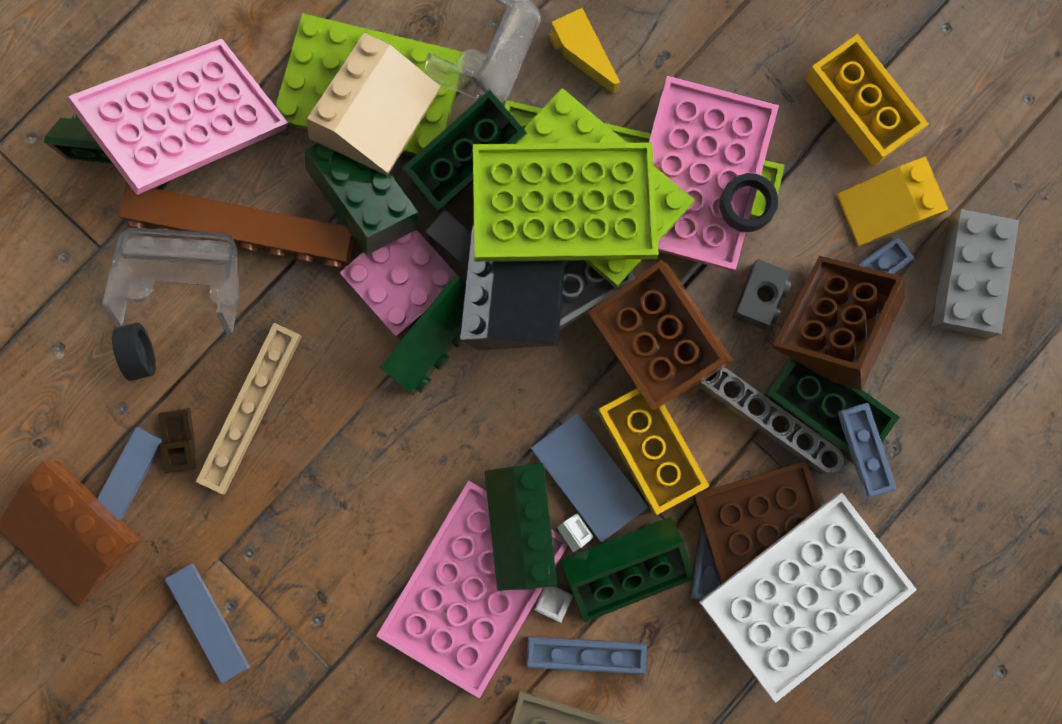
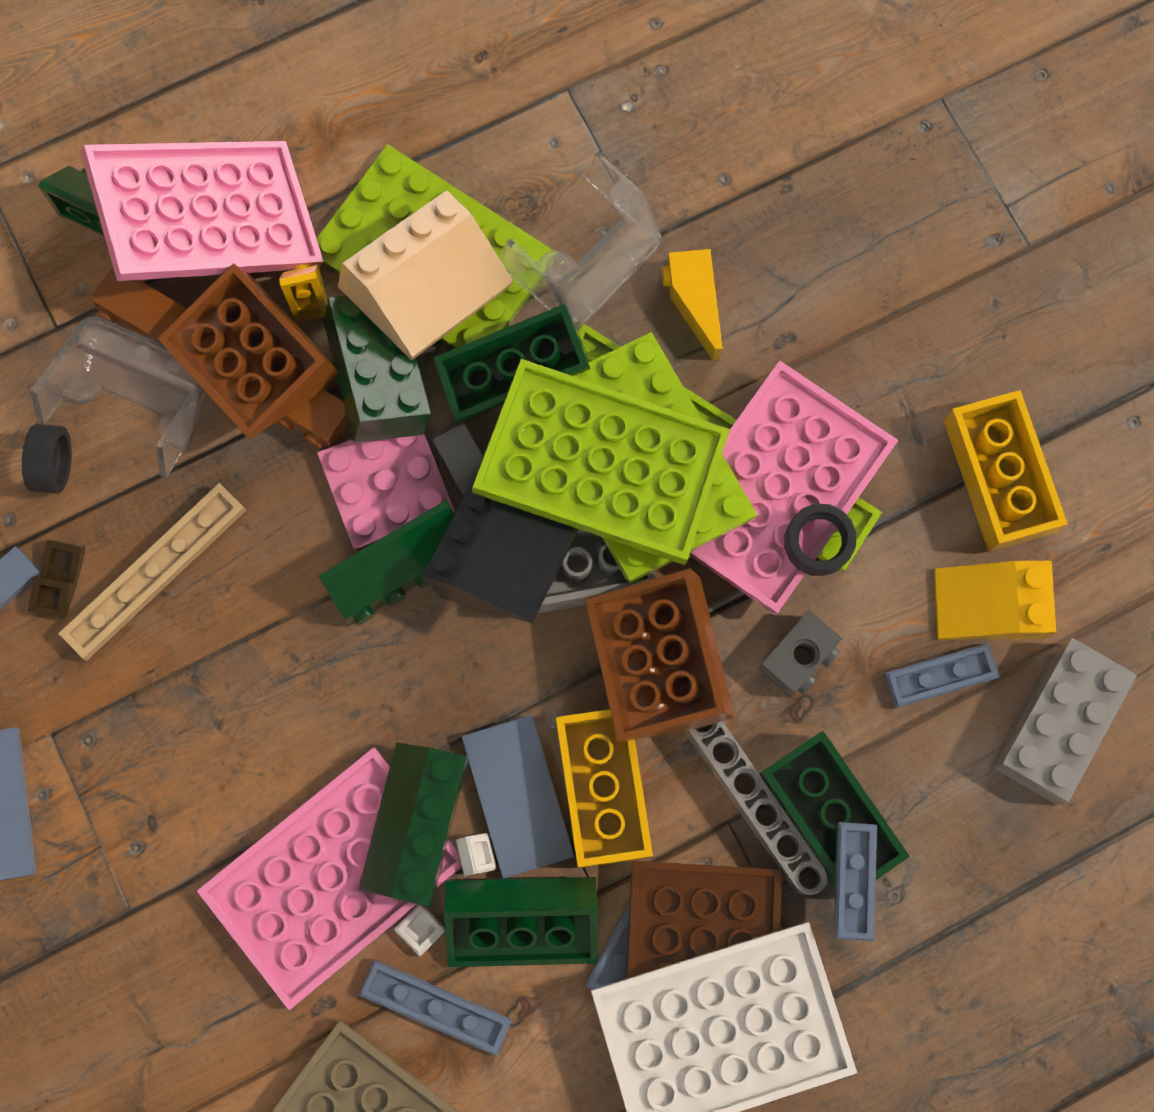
camera: 15 degrees right, 5 degrees down
(258, 215) = (247, 353): none -> dark orange slope
(283, 151) = (304, 292): none -> yellow slope
(841, 320) = (881, 717): reddish brown slope -> none

